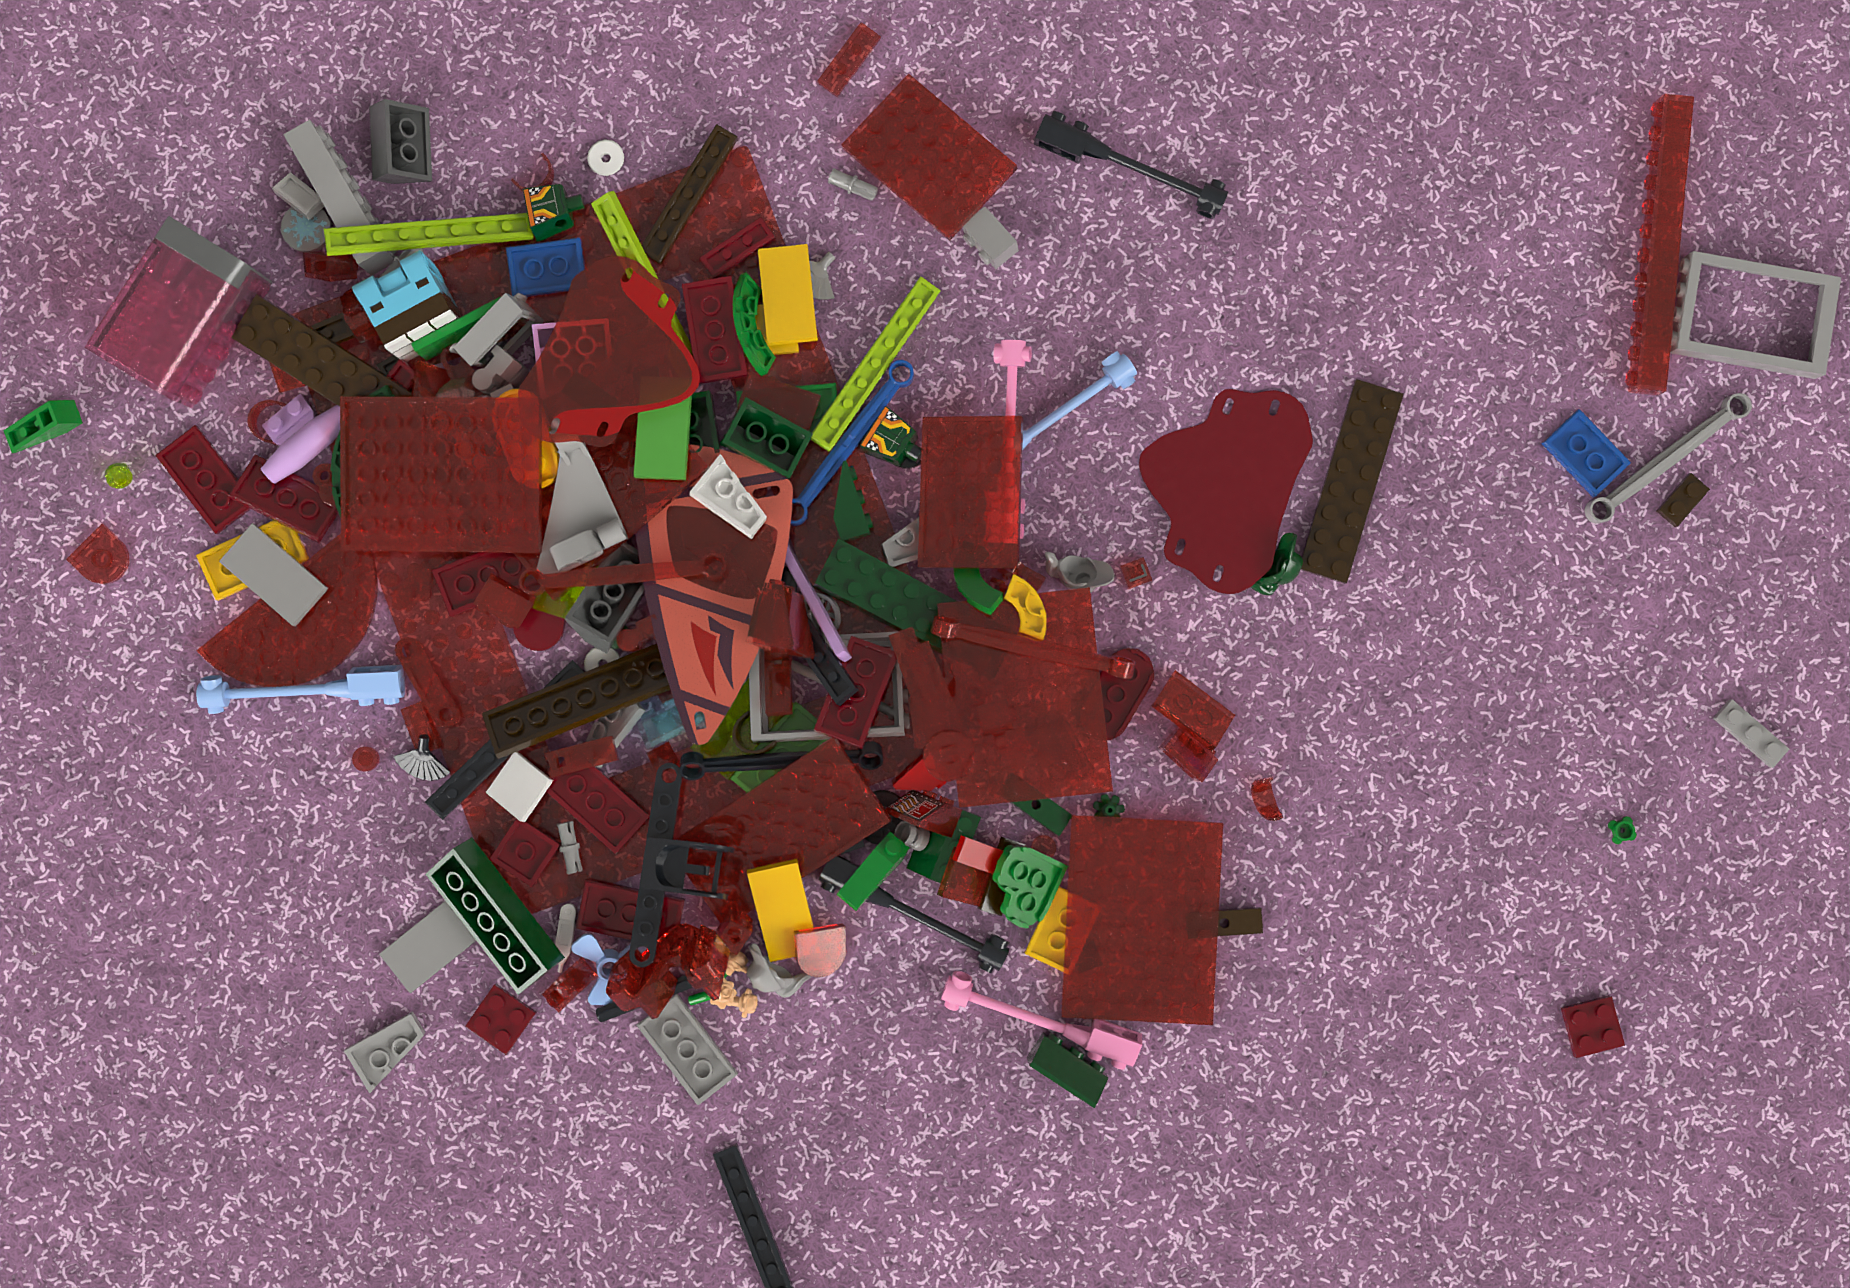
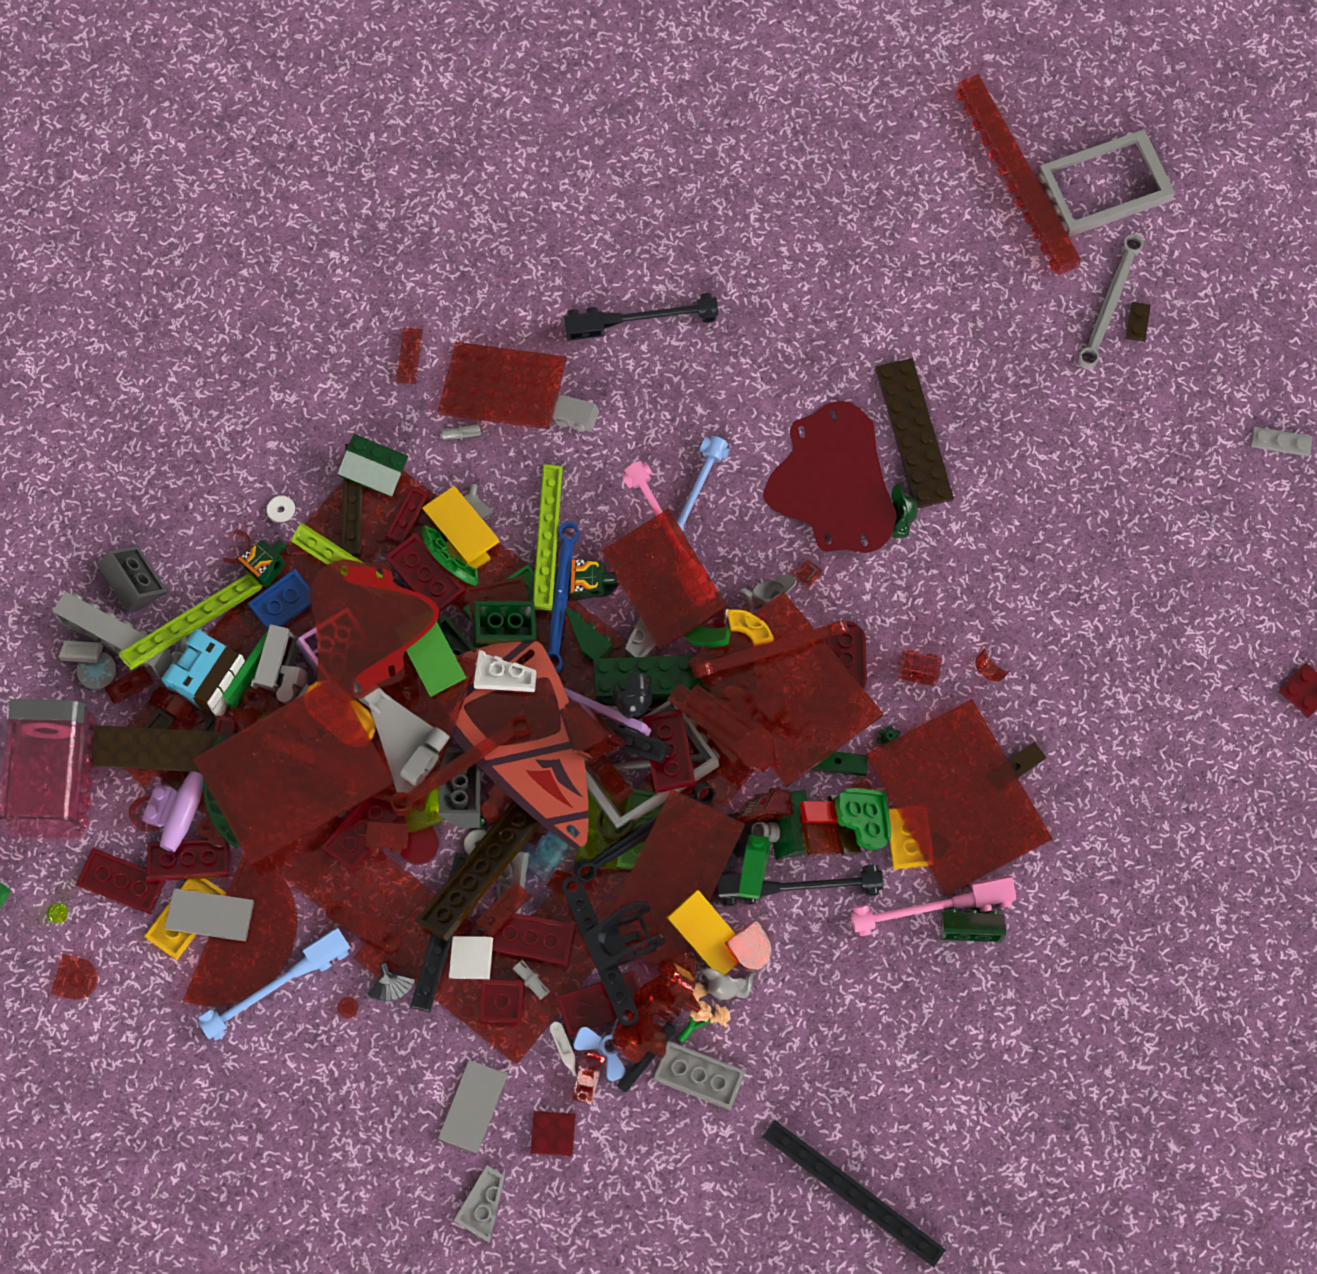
camera: 25 degrees left, 15 degrees down
(494, 915) = (507, 1056): dark green brick -> none
(729, 168) = (372, 465): none -> slope
(854, 615) = (636, 698): none -> black helmet
(916, 777) = (748, 783): red slope -> none
(1193, 710) = (904, 637): clear red tile -> none
(1586, 453) = (1056, 328): blue tile -> none
(1629, 830) = (1240, 545): green plate -> none

